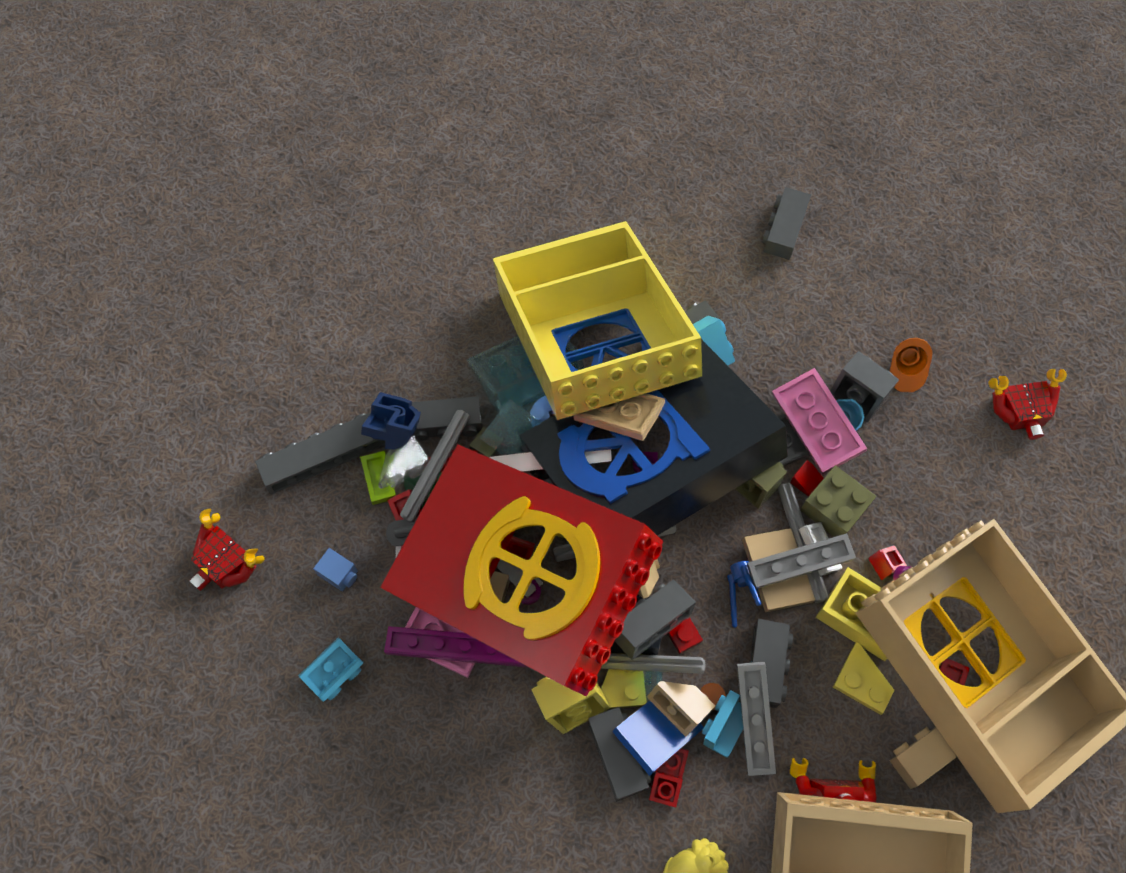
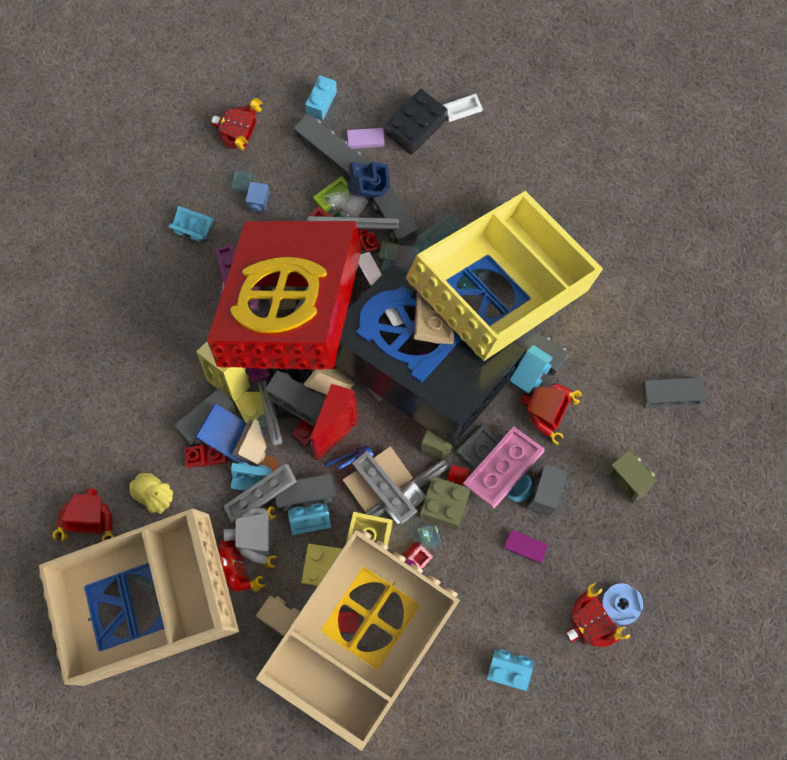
camera: 70 degrees right, 5 degrees up
(238, 439) = (321, 97): none -> medium azure brick
(303, 581) = (242, 181): none -> clear light blue plate
(320, 411) = (365, 138): none -> lavender tile
(332, 345) = (416, 121): none -> black brick
(338, 292) = (463, 107): none -> white tile
(702, 576) = (334, 420): none -> red slope
(761, 348) = (548, 408): none -> red torso
(804, 670) = (309, 518): none -> medium azure bracket
(808, 748) = (253, 535): none -> light grey torso
(872, 537) = (429, 536): none -> clear light blue plate
(875, 297) = (631, 476): none -> olive brick
(911, 364) = (585, 522): orange piece -> none
(914, 439) = (526, 546): none -> magenta tile
(1014, 356) = (627, 594): none -> light blue plate
(1057, 511) = (510, 669): none -> medium azure bracket

